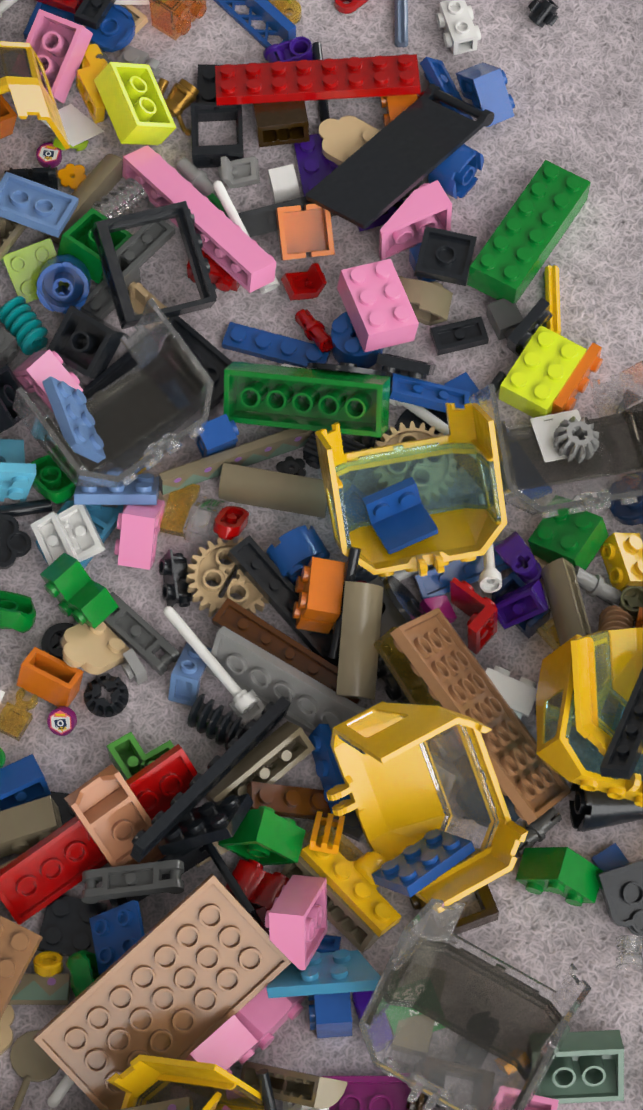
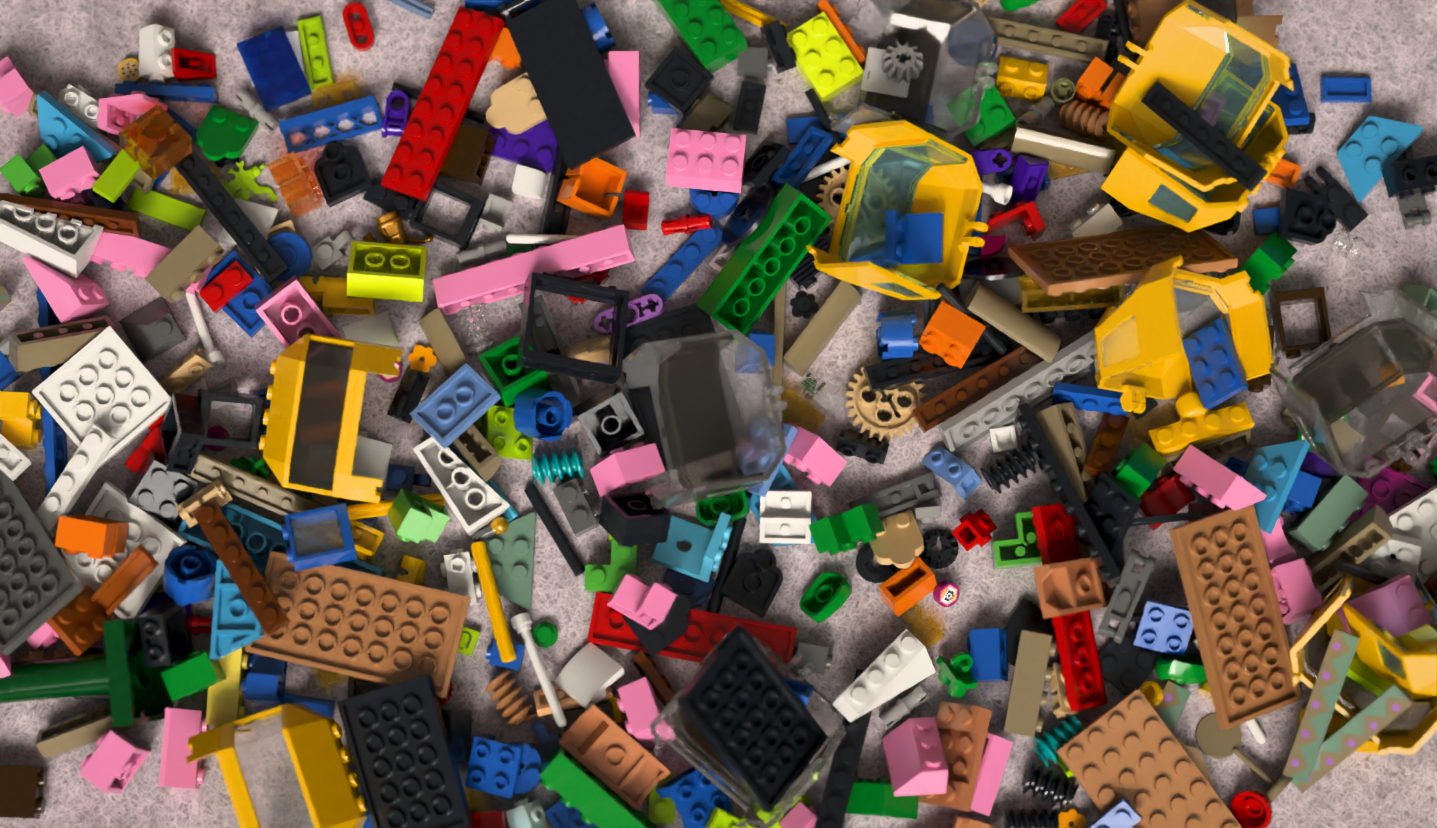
camera: 65 degrees left, 15 degrees up
(74, 419) = (693, 461): medium blue plate -> none
(138, 715) = (974, 529): none -> red brick
(205, 330) = (644, 301): none -> medium lavender beam
(211, 38) = (342, 173): none -> black plate
(230, 522) = (837, 375): red plate -> none
(243, 700) = (1001, 439): white piece -> none
(321, 1052) = (1328, 513): none -> sand green slope
(328, 822) = (1132, 426): light orange tile -> none
(541, 921) = (1299, 297): none -> dark brown window

